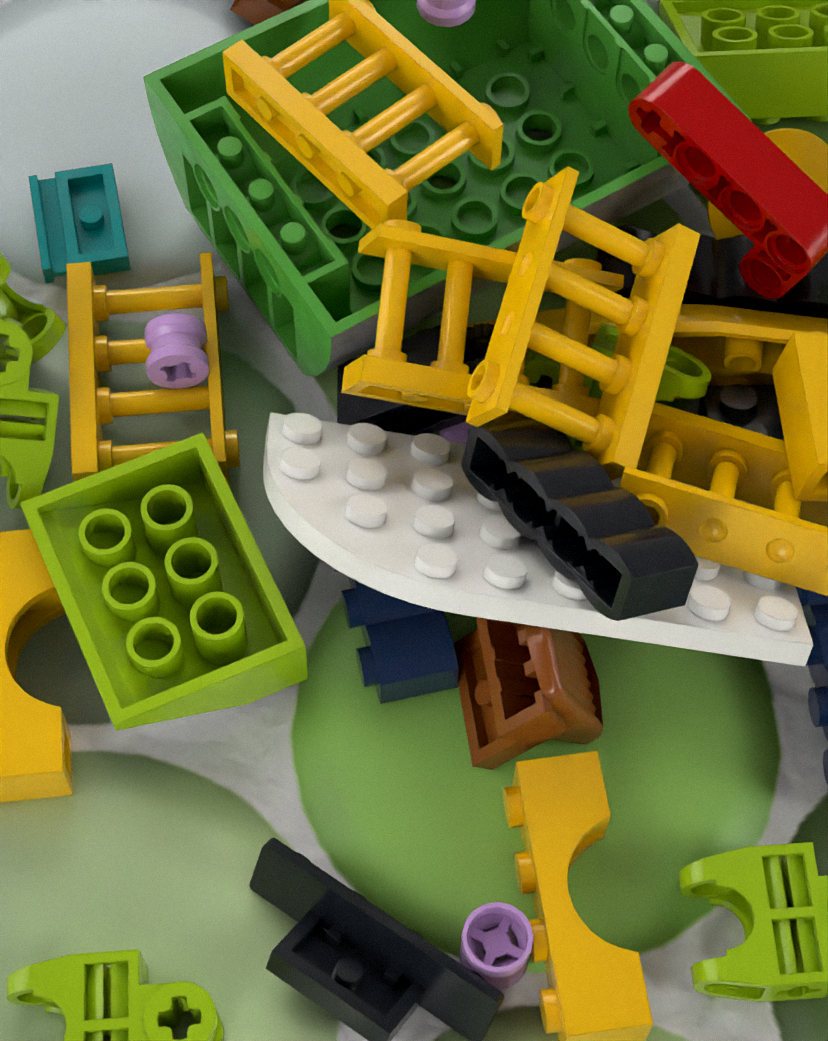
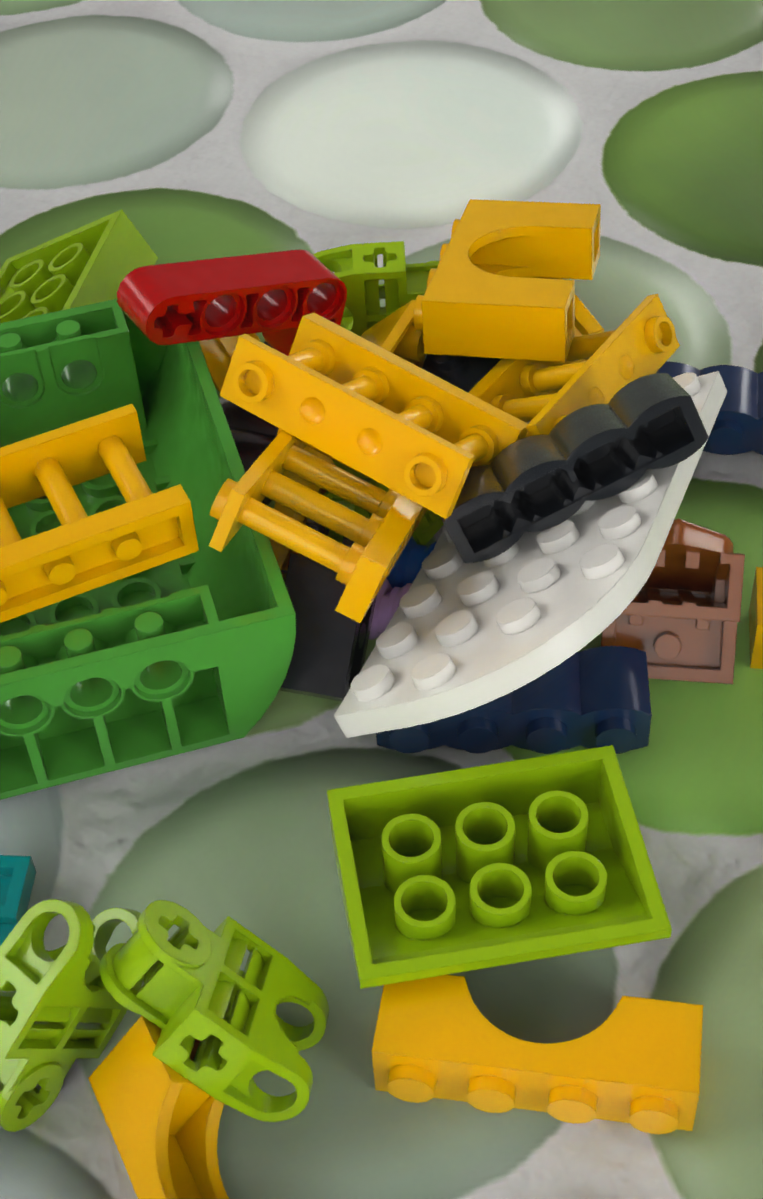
camera: 70 degrees left, 15 degrees down
(91, 354) = (212, 802): yellow fence -> none
(176, 350) = (203, 805): lavender wheel -> none

